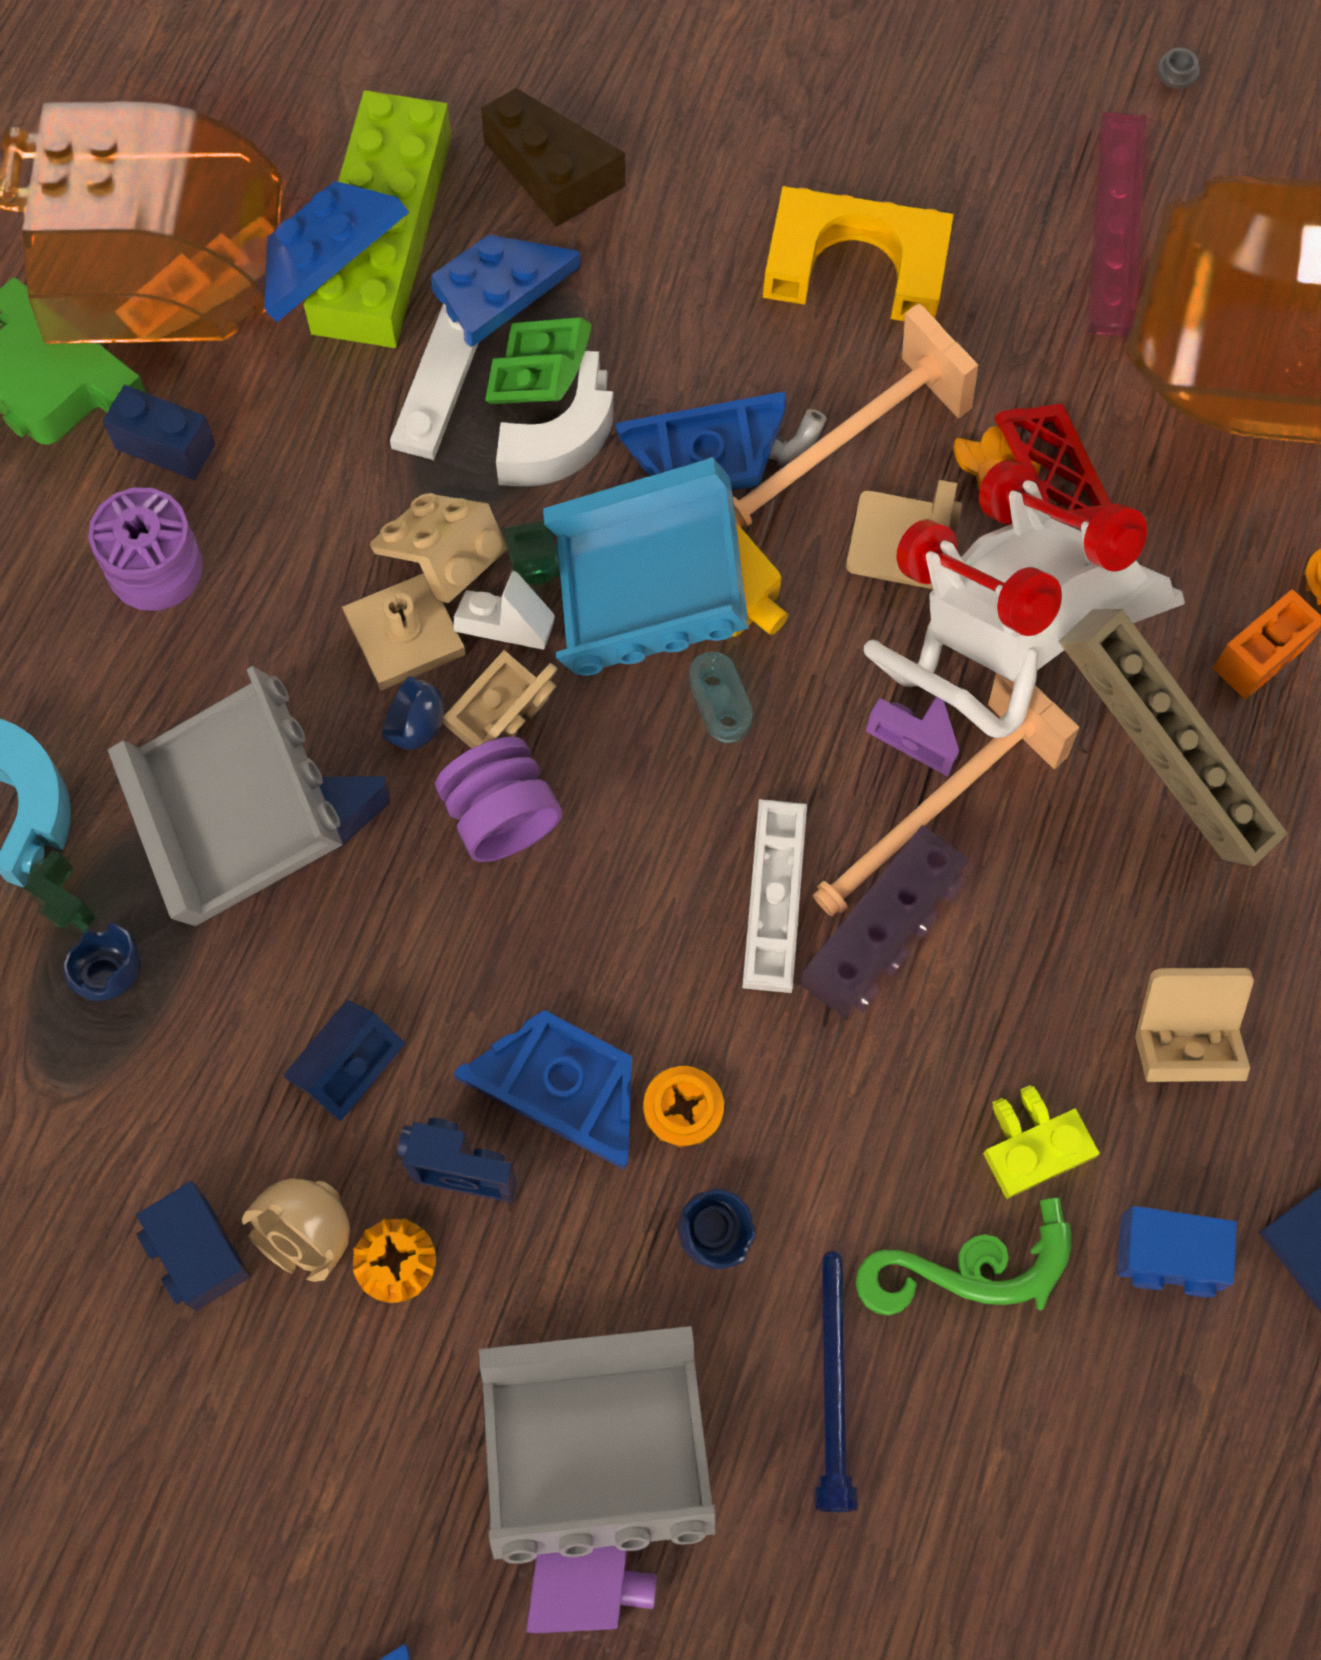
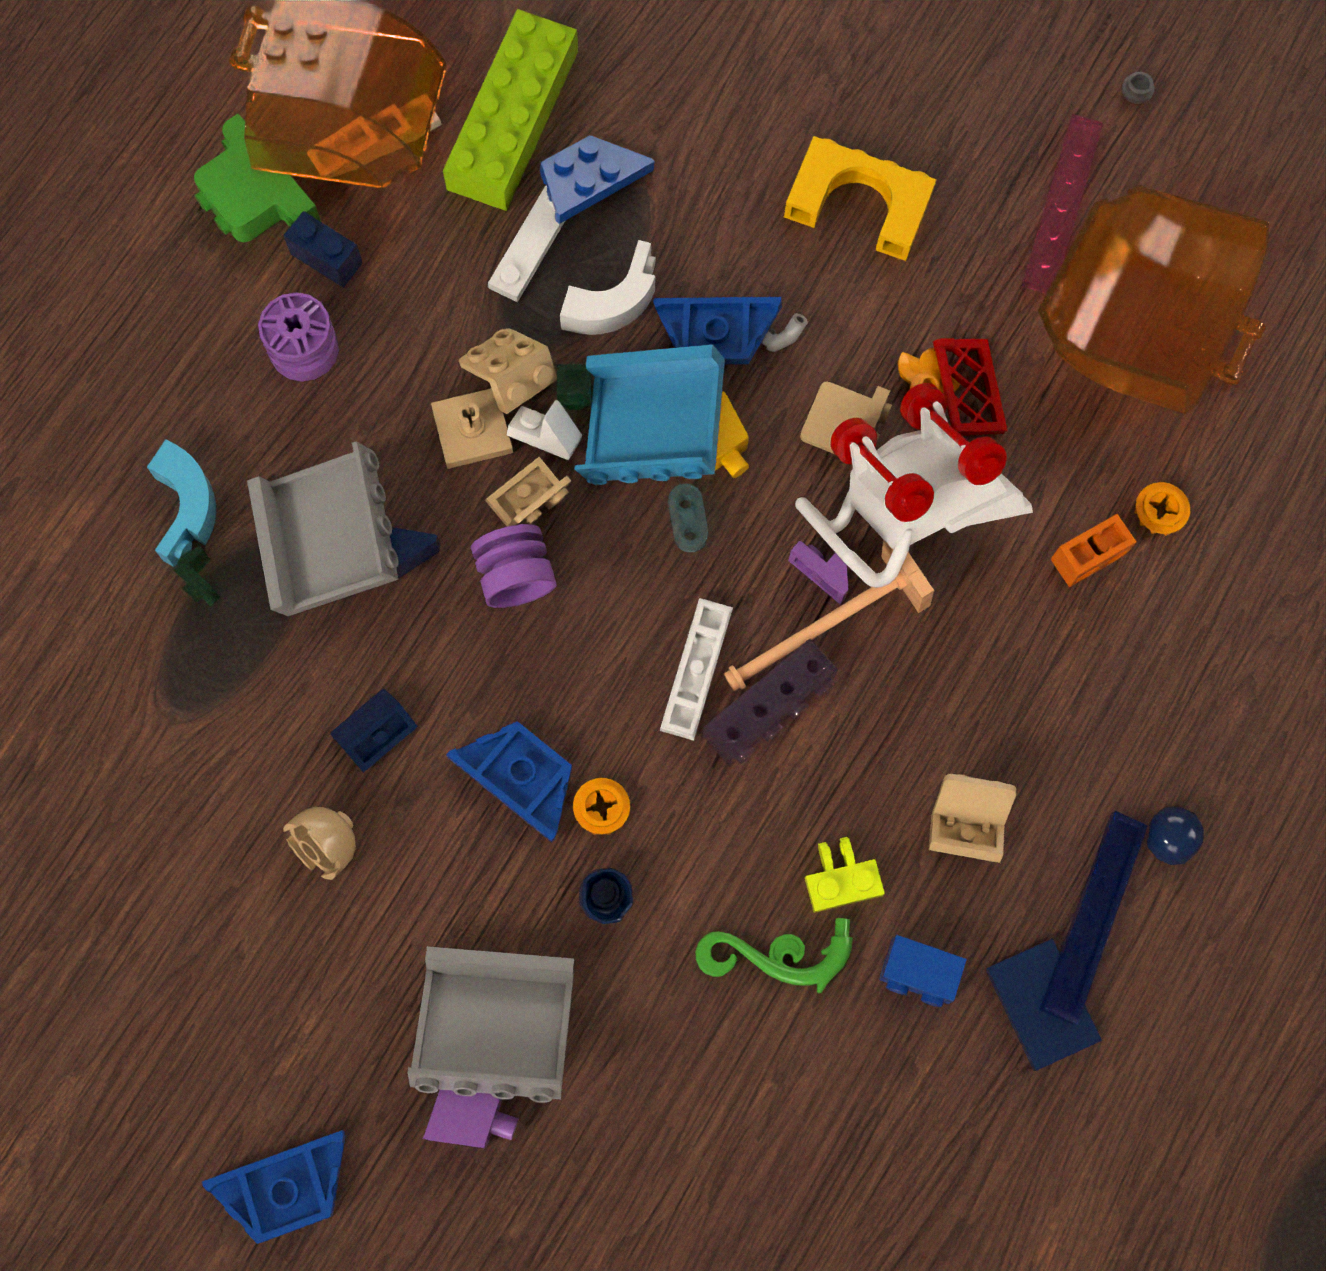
camera: 10 degrees right, 5 degrees up
(102, 964) = (219, 633): dark blue hair -> none
(191, 1247) = (246, 840): dark blue brick -> none
(322, 241) = (463, 126): blue wing -> none
(414, 715) = (466, 493): dark blue hair -> none
(414, 1272) = (394, 885): light orange gear -> none
(443, 1159) = (428, 812): dark blue plate -> none
(538, 361) = (607, 242): bright green slope -> none
(552, 156) = (647, 81): dark brown wedge -> none
(835, 1487) = (651, 1085): clear blue piece -> none
(933, 361) = (897, 295): light nougat tile -> none
(1172, 736) = (999, 609): dark tan brick -> none

